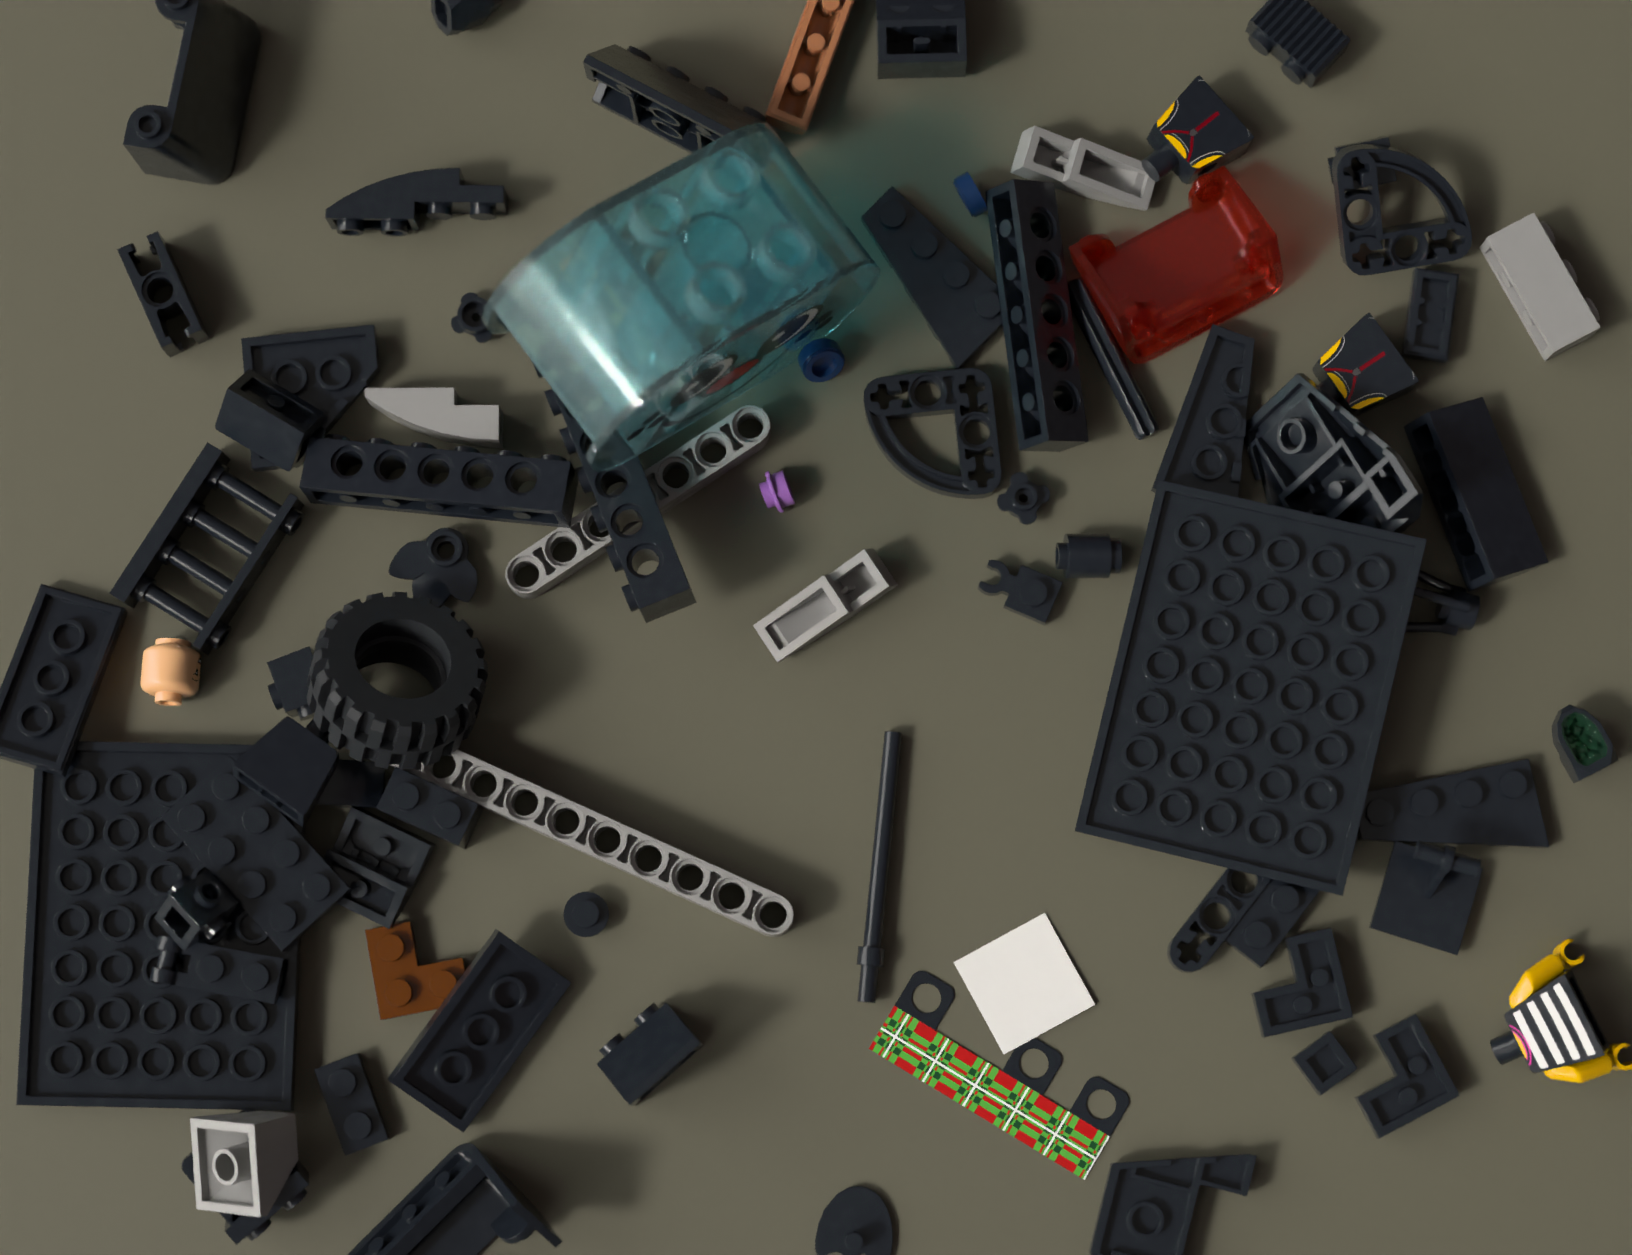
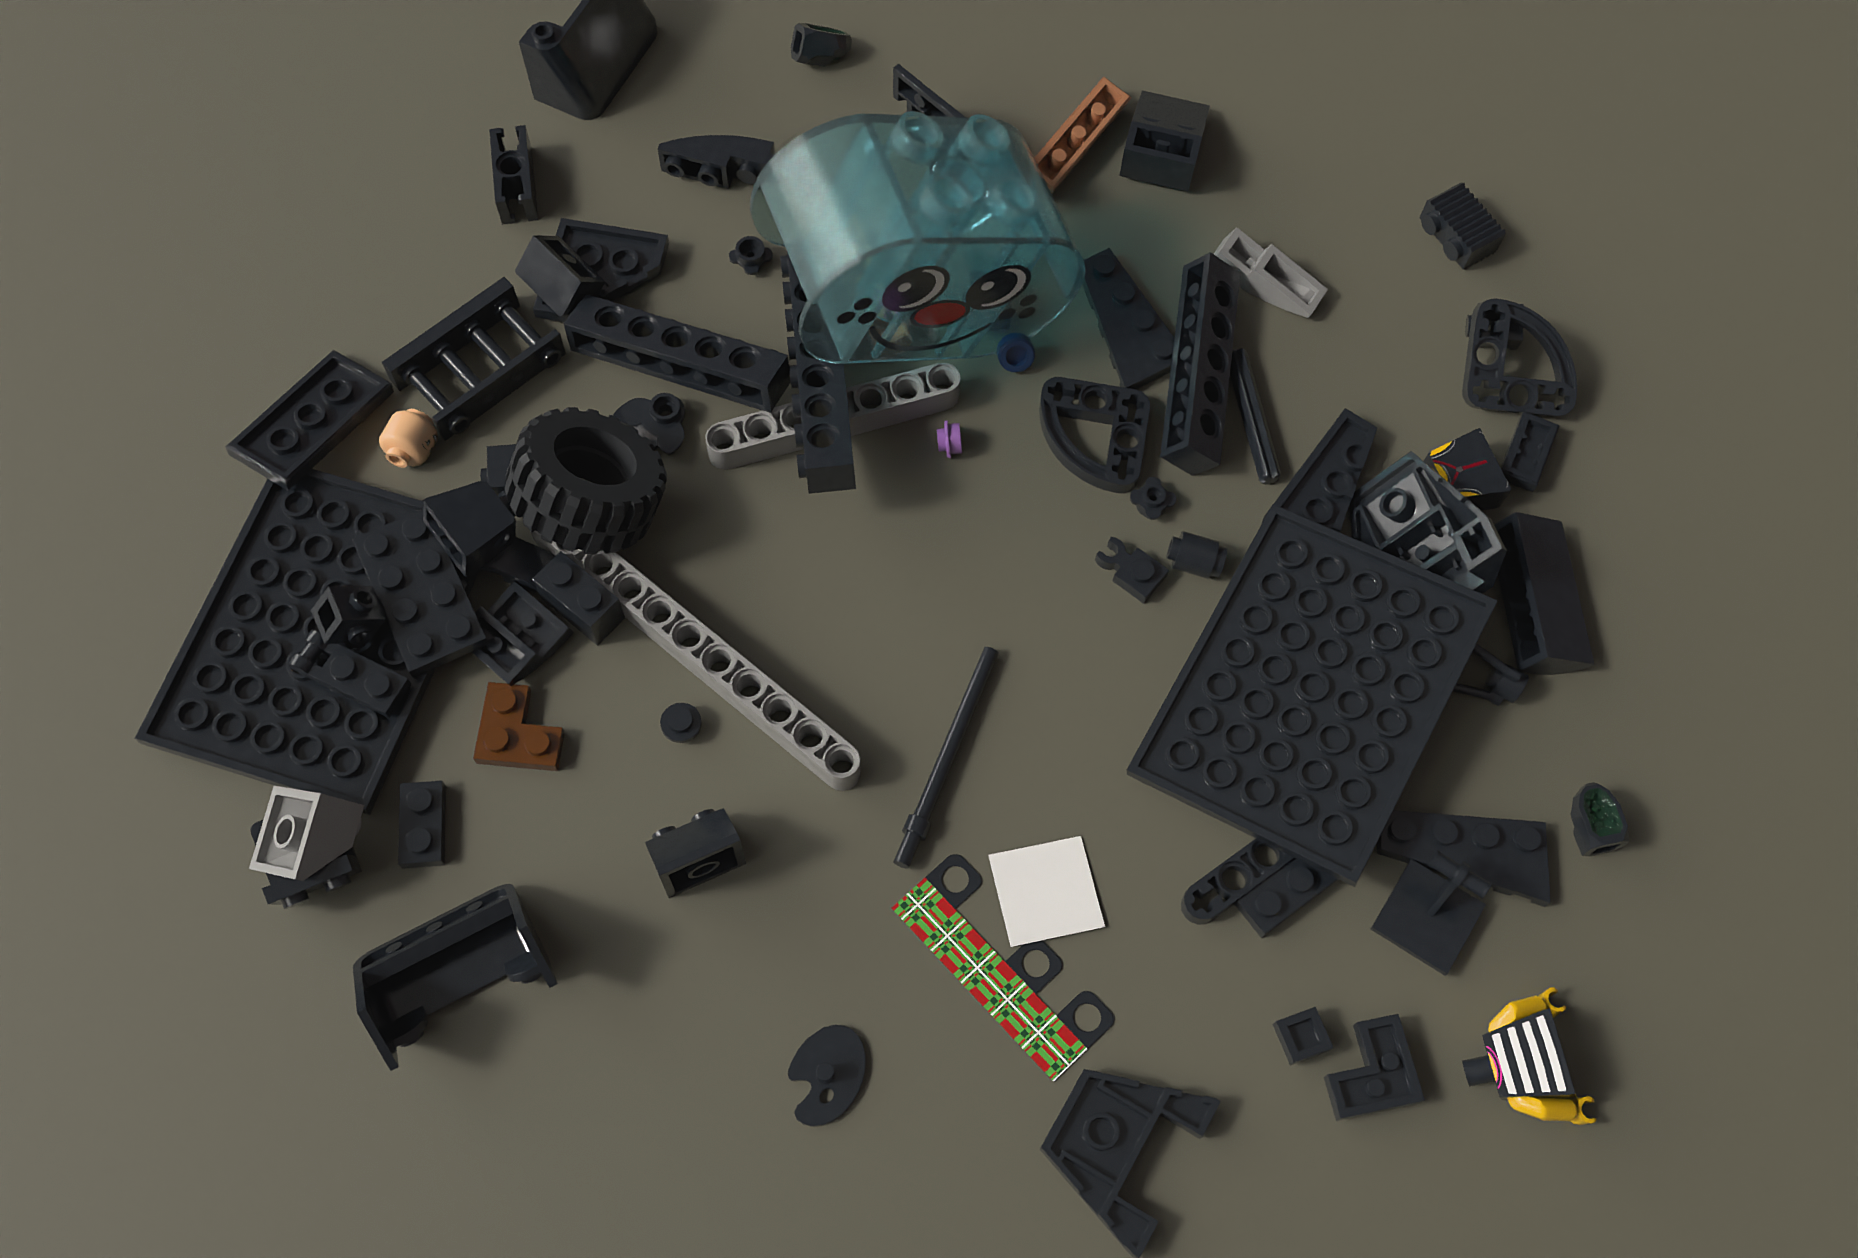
camera: 10 degrees right, 15 degrees down
(439, 415) = (693, 305): light grey slope -> none
(479, 1030) = (553, 789): black plate -> none
(825, 604) = (964, 533): light grey slope -> none
(970, 195) = (1170, 268): dark blue tile -> none
(1184, 270) = (1327, 370): clear red windscreen -> none
(1195, 136) = (1364, 272): black torso -> none
(1318, 989) = (1309, 972): black plate -> none
(1540, 286) = (1626, 452): light grey brick -> none

